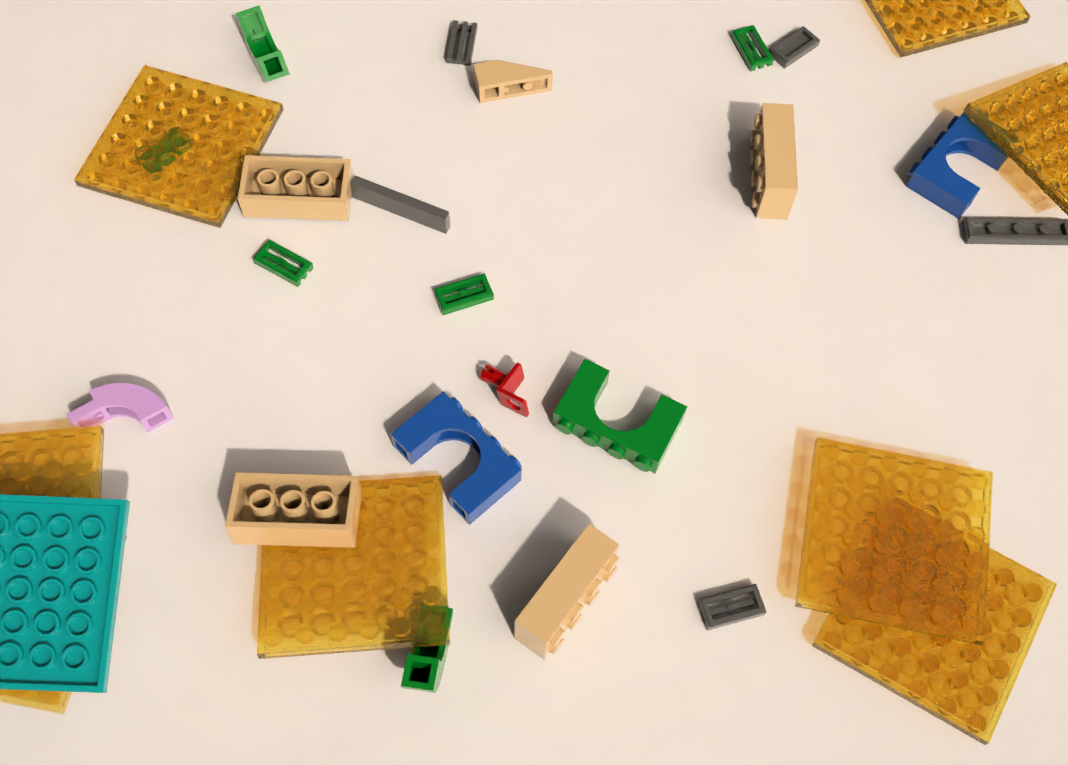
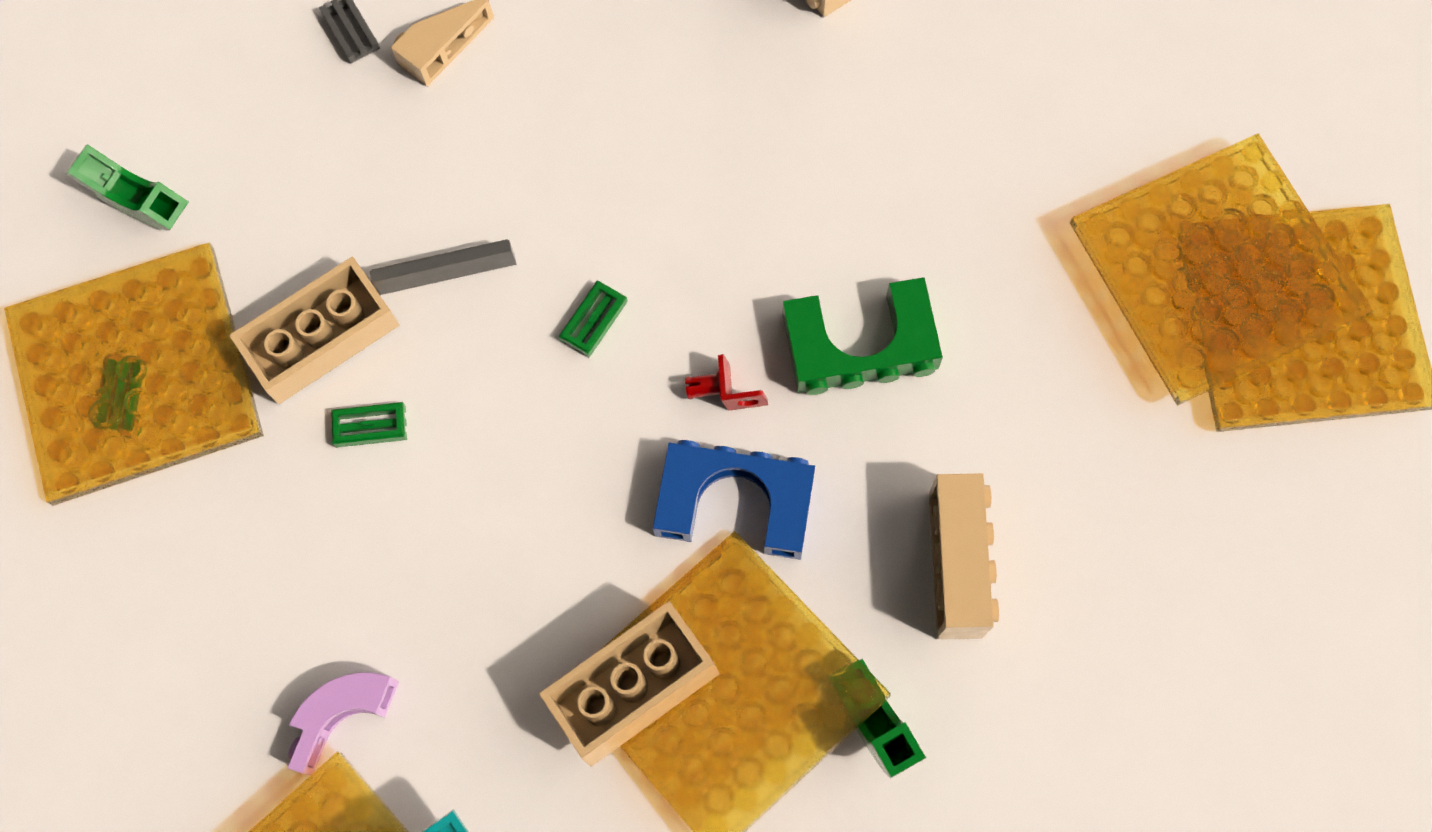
camera: 30 degrees left, 10 degrees up
(735, 618) = (1099, 474): dark grey tile -> none

